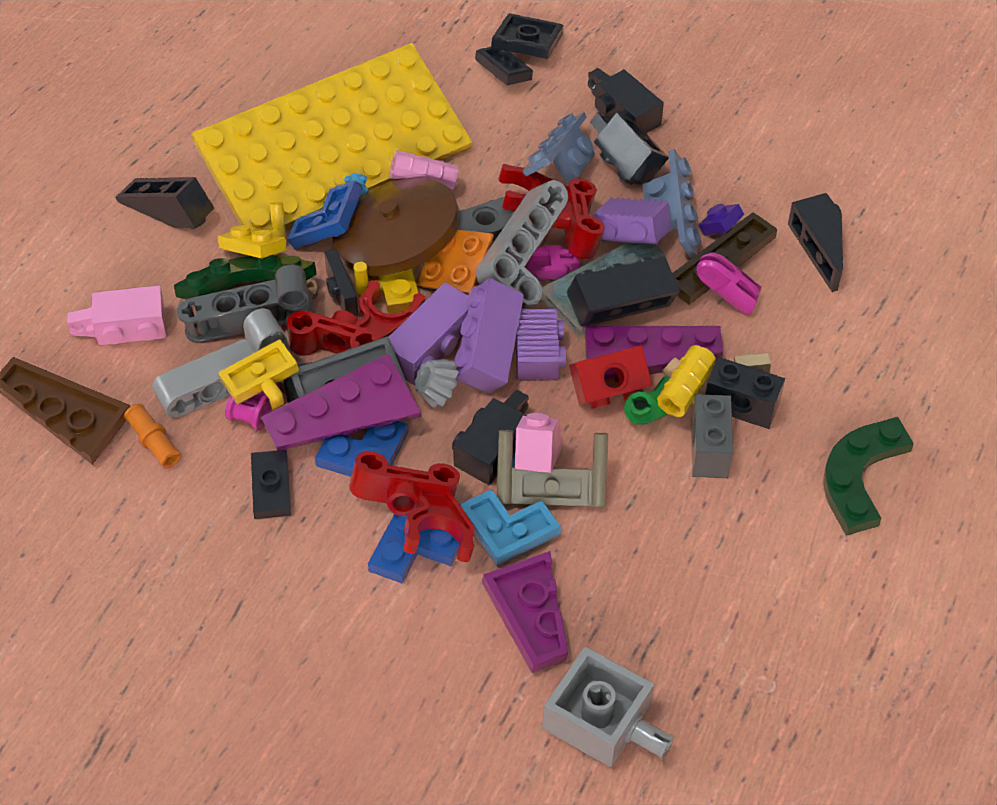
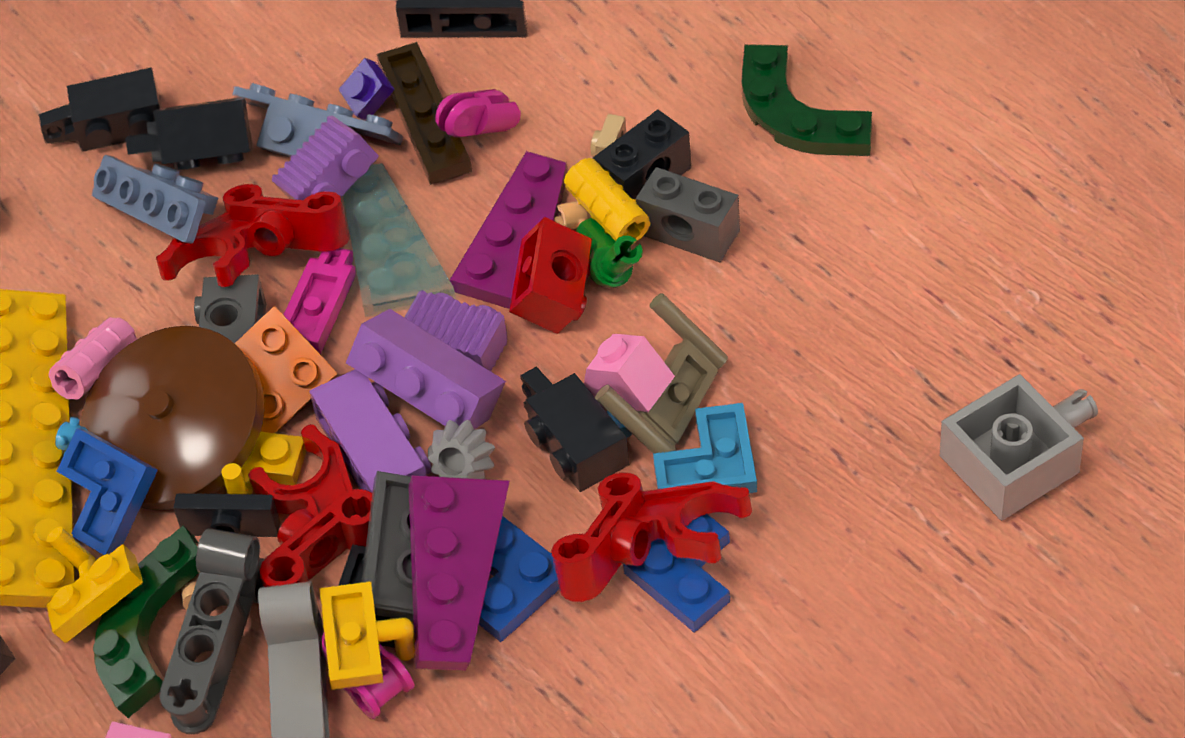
camera: 60 degrees left, 0 degrees up
(270, 484) = (509, 698): black plate -> none
(526, 240) = (301, 279): light grey beam -> none
(530, 610) = (831, 478): magenta wing -> none
(622, 290) = (427, 217): black brick -> none

